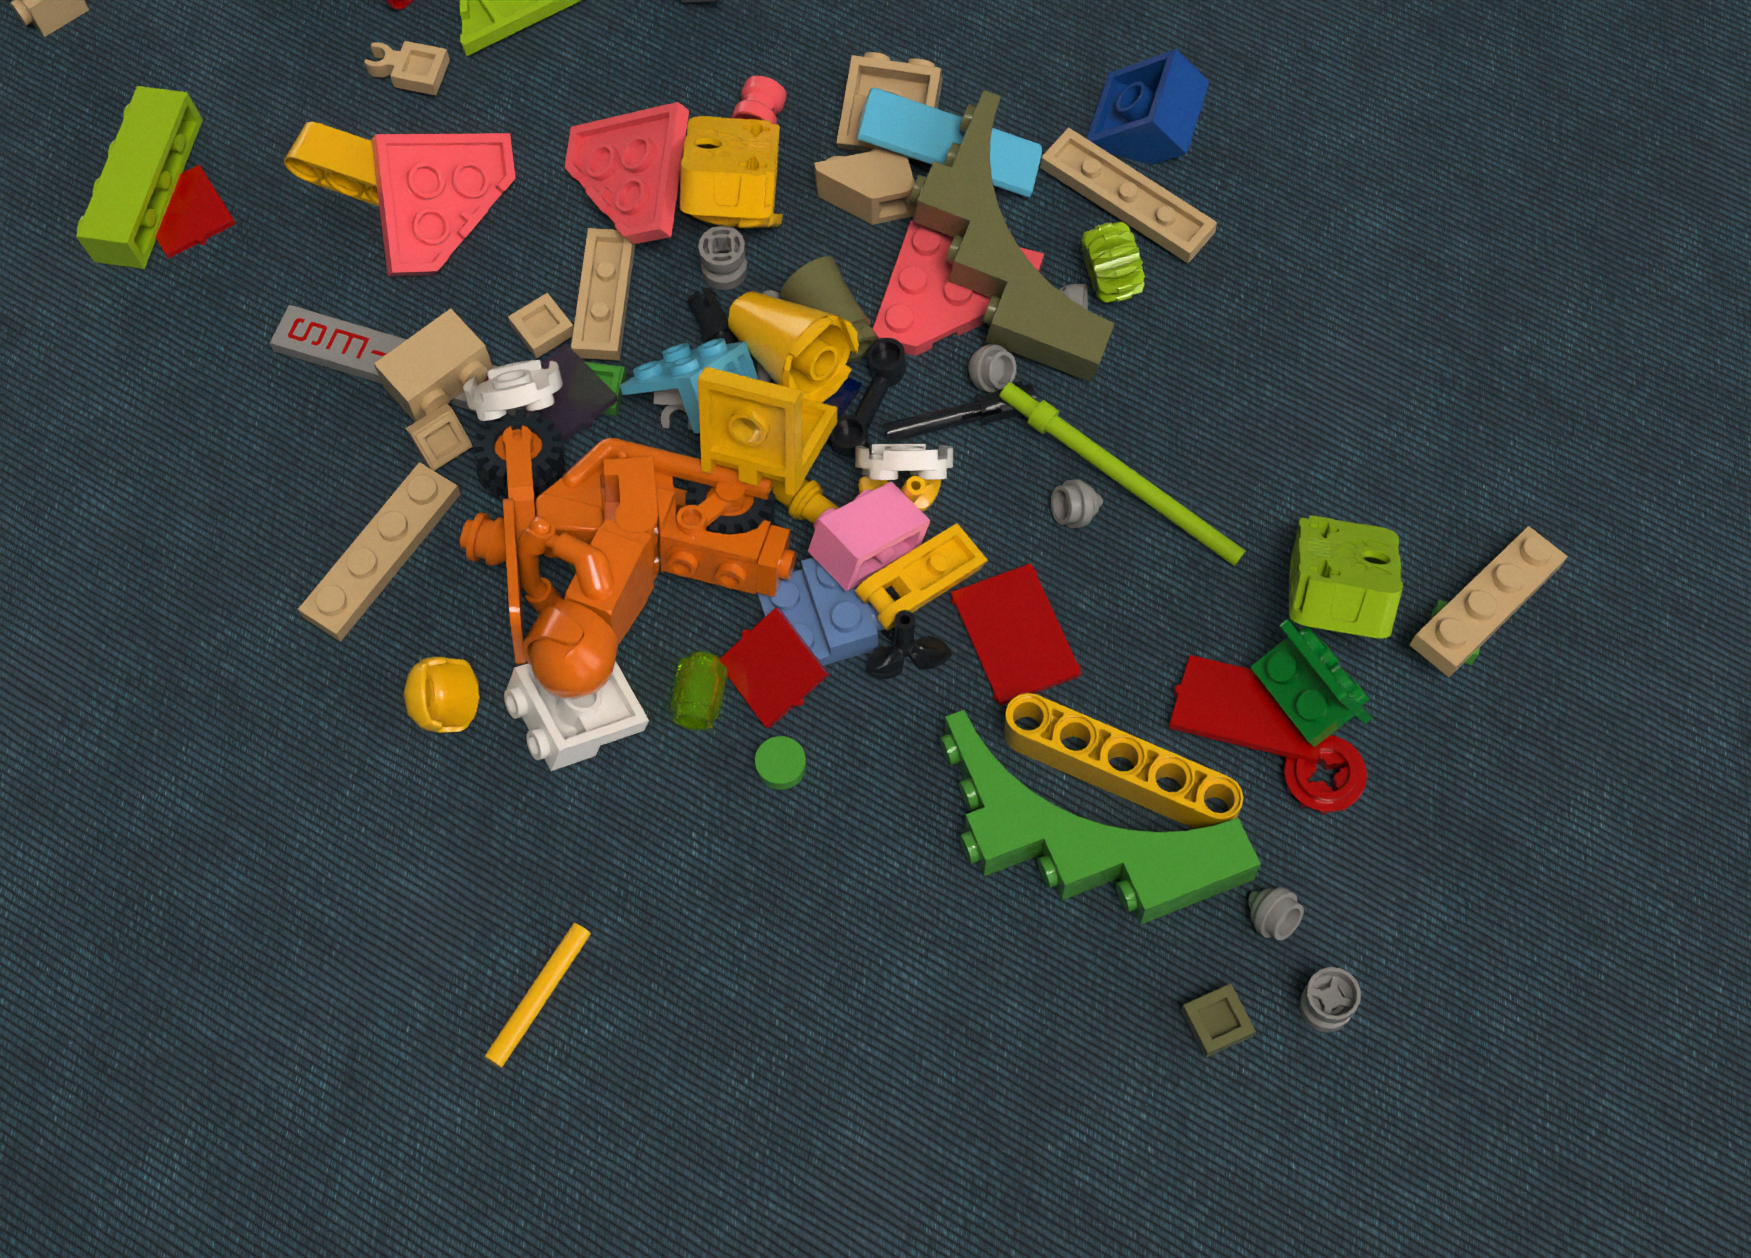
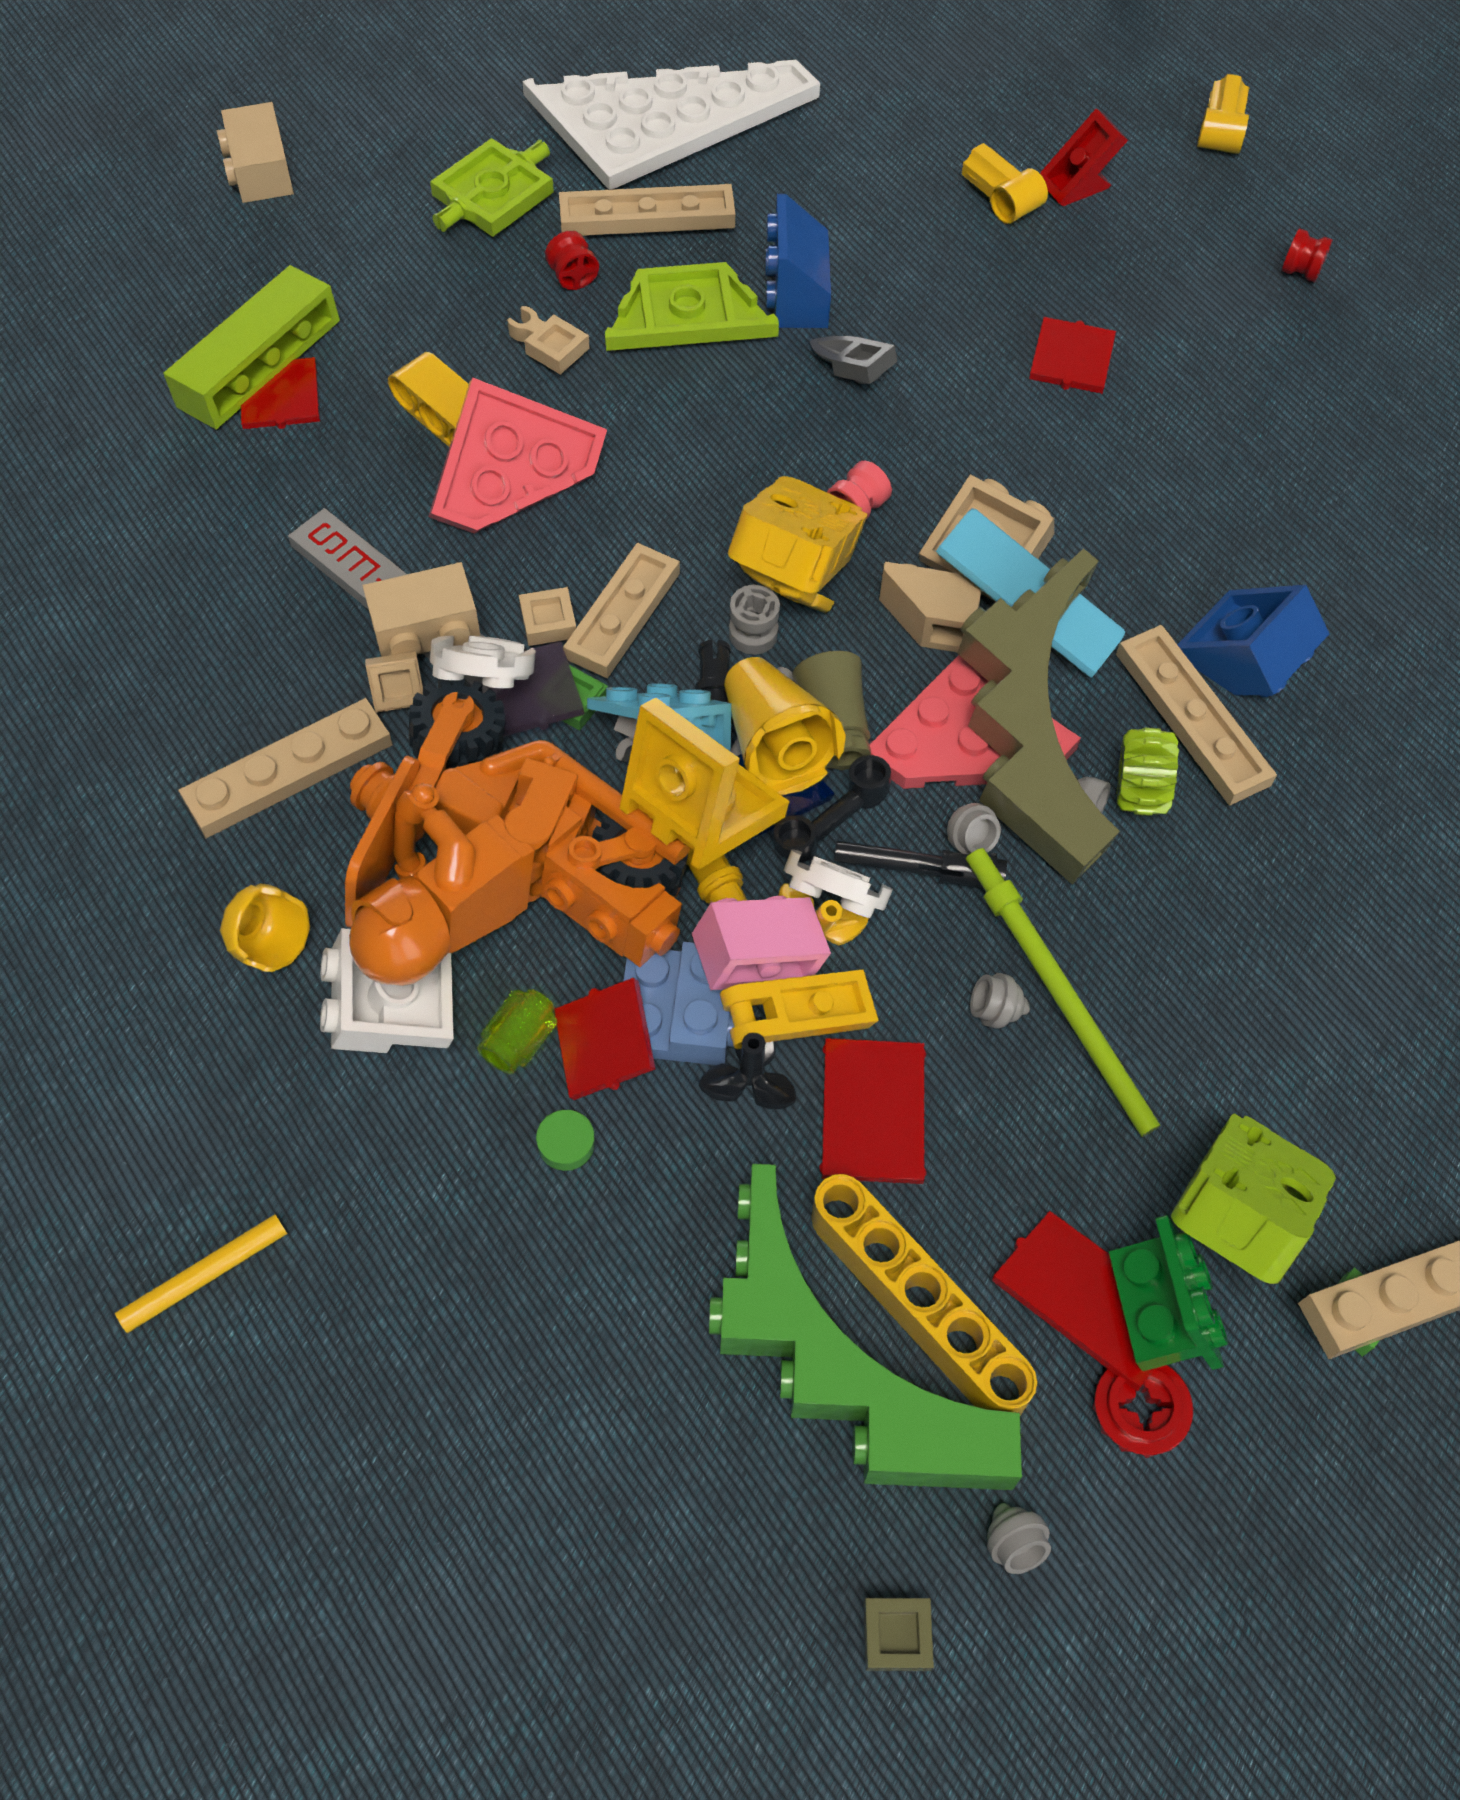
camera: 20 degrees right, 5 degrees down
(632, 168) = (701, 499): coral plate -> none
(1335, 990) = (1043, 1661): light grey wheel -> none

